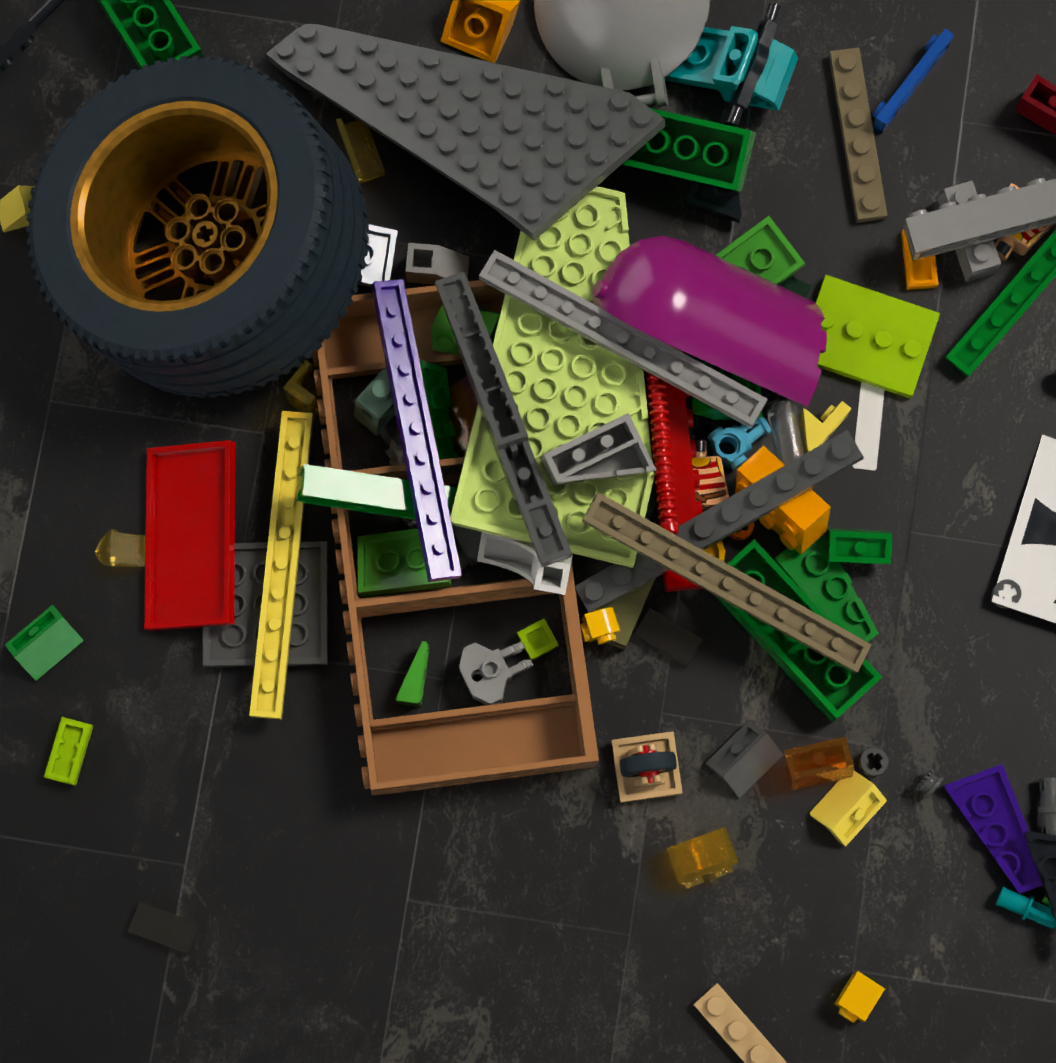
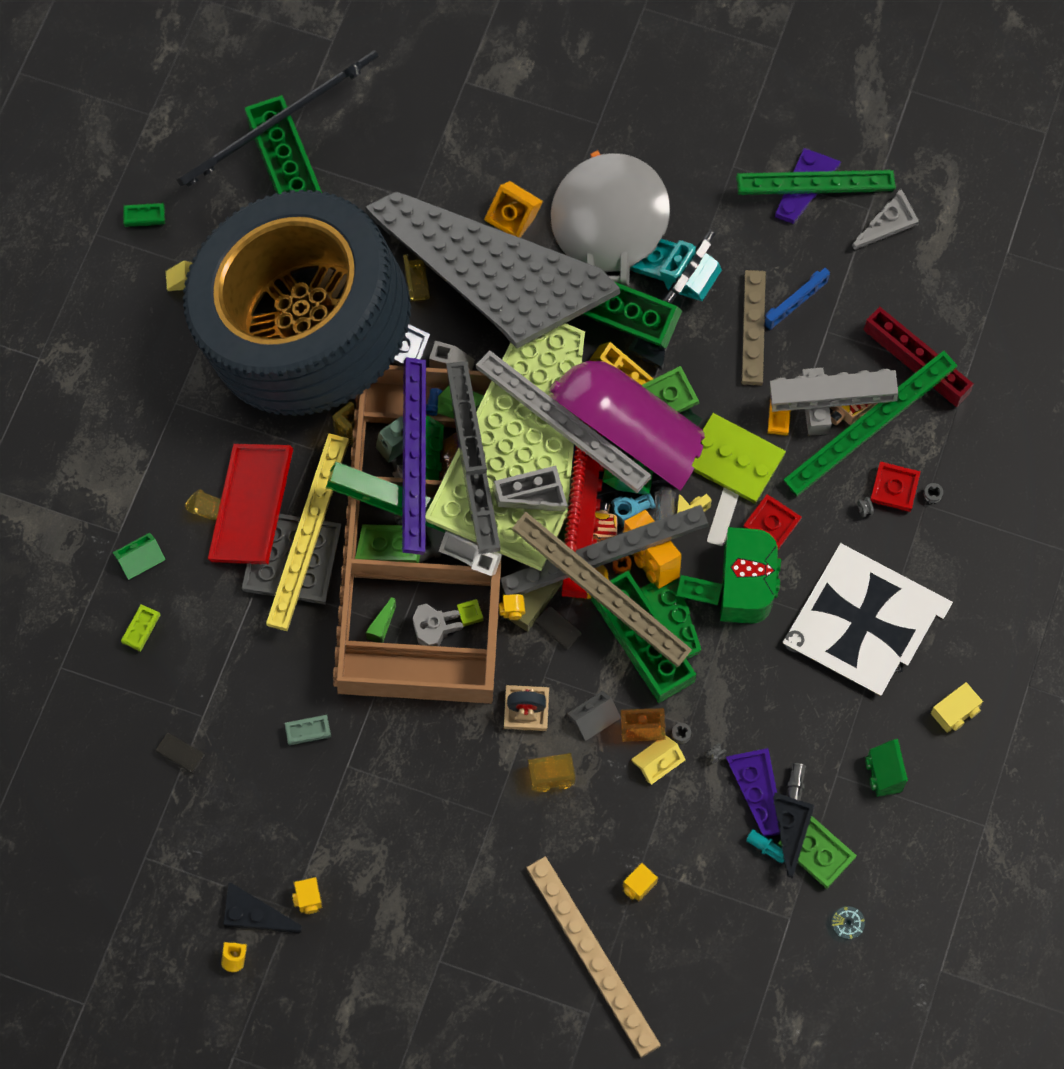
camera: 10 degrees right, 10 degrees down
(340, 859) = (307, 730): none -> sand green plate
(423, 332) = (432, 405): none -> blue pin
(664, 219) = (613, 356): none -> yellow slope
(926, 511) = (749, 575): none -> green brick
(941, 423) = (774, 519): none -> red plate

